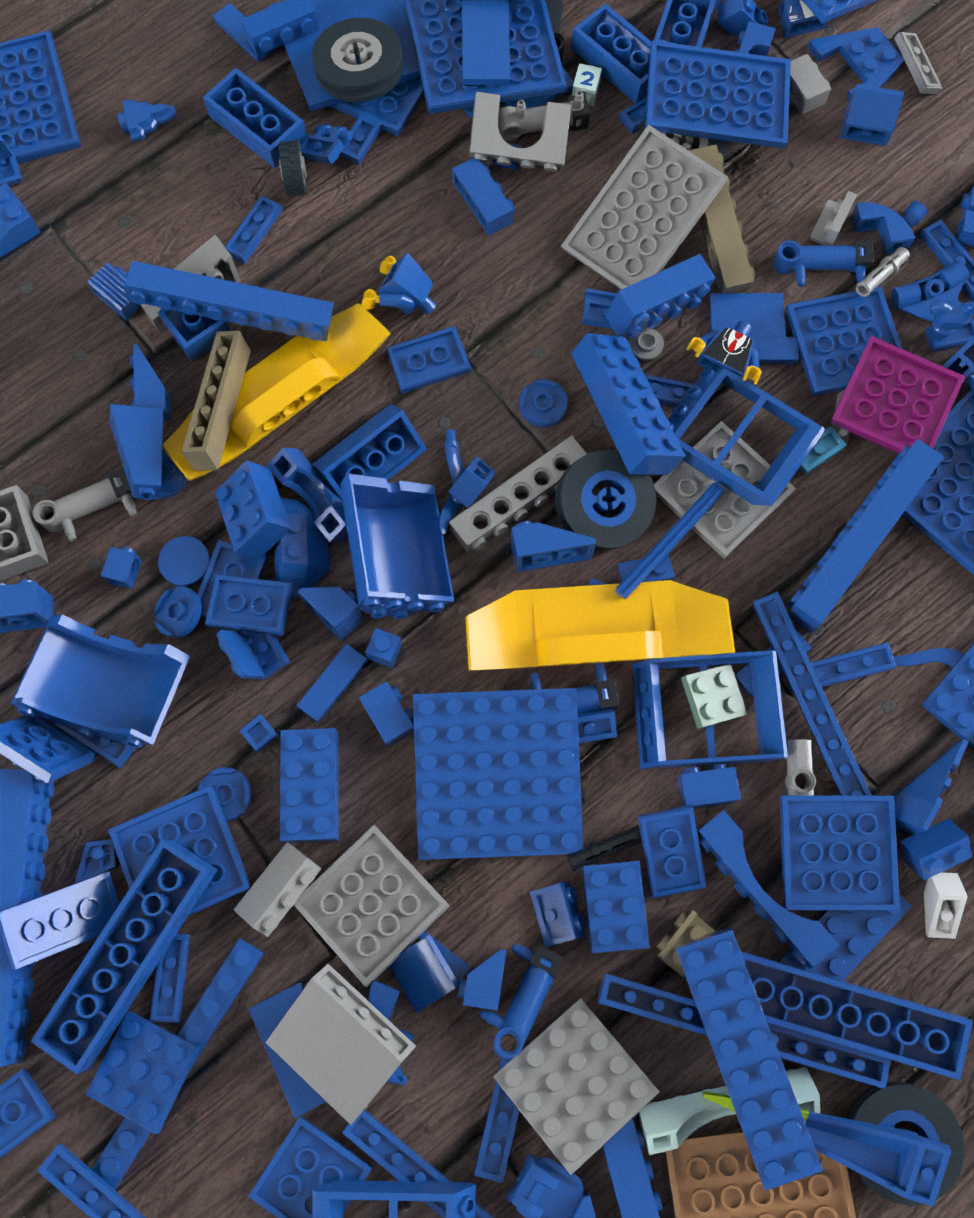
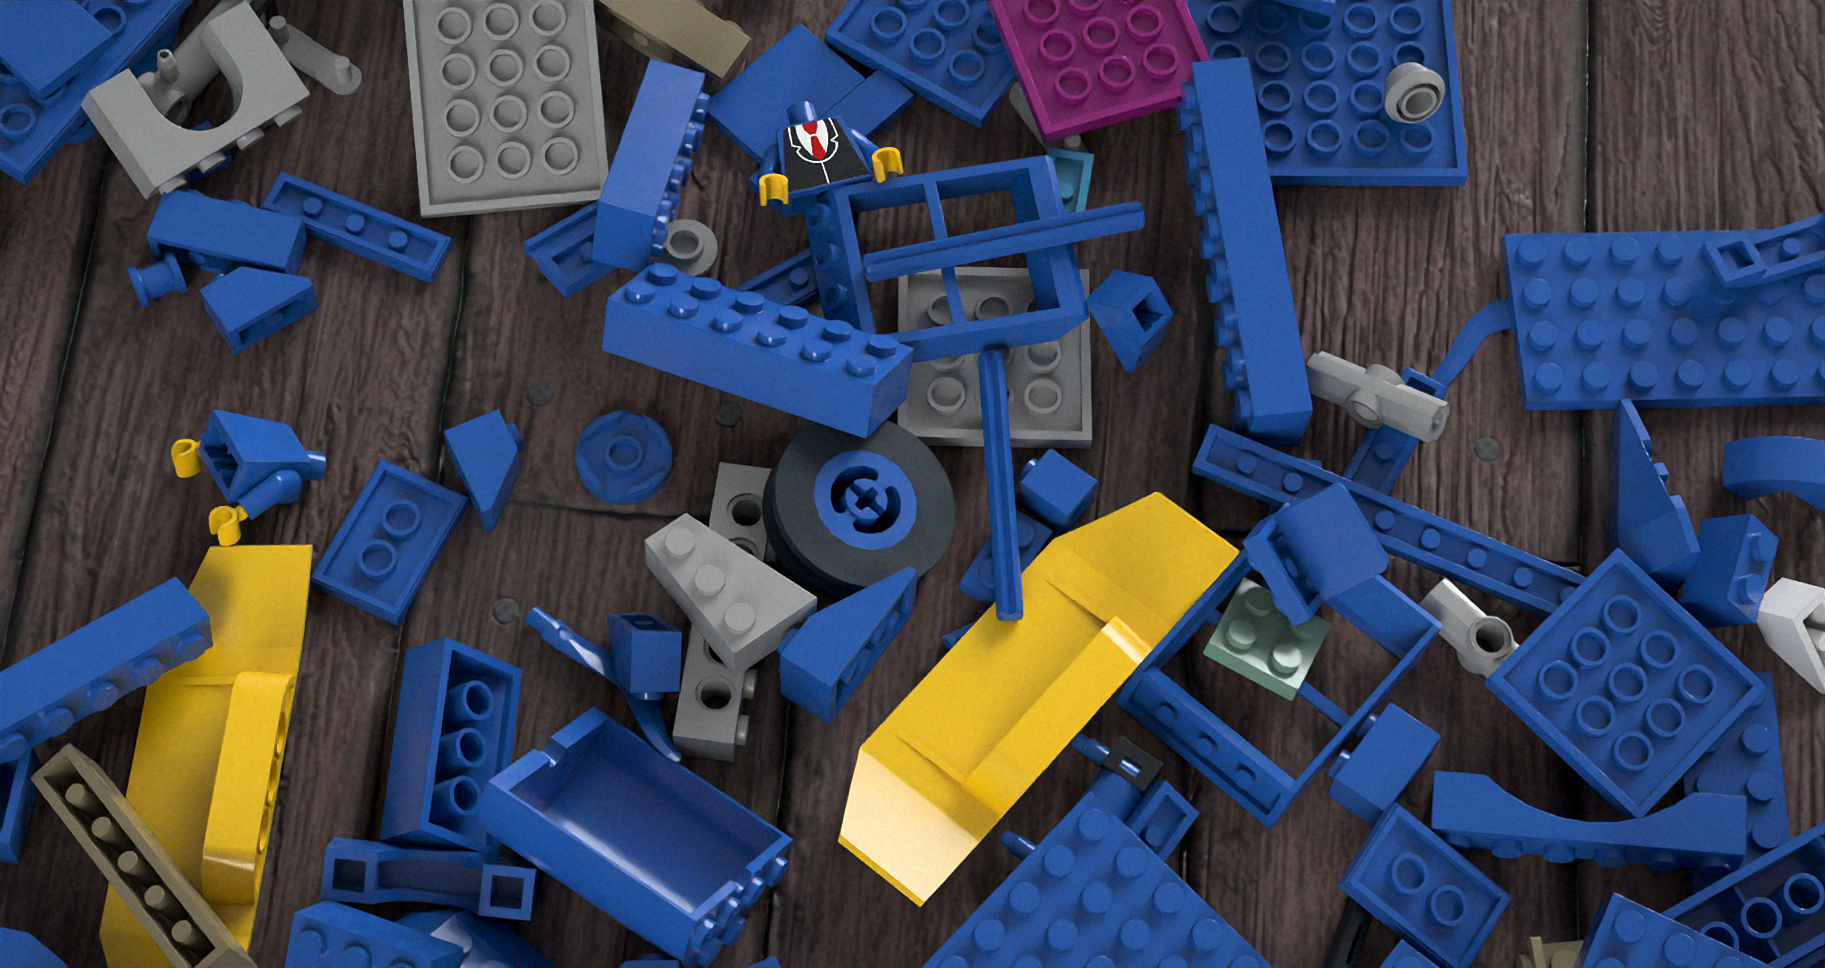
camera: 50 degrees left, 10 degrees down
(443, 189) = (157, 279): none -> blue bush
(467, 229) = (256, 304): none -> blue slope
(489, 361) = (486, 462): none -> blue slope
(518, 485) = (726, 592): none -> light grey wedge
(535, 232) = (361, 228): none -> blue tile
(583, 153) = (315, 60): none -> light grey piece
(691, 562) = (1055, 491): none -> blue brick
(762, 679) = (1314, 551): none -> blue bracket
(768, 446) = (1003, 241): none -> blue axle
(790, 521) = (1131, 316): none -> blue slope
(859, 642) = (1376, 396): none -> light grey piece

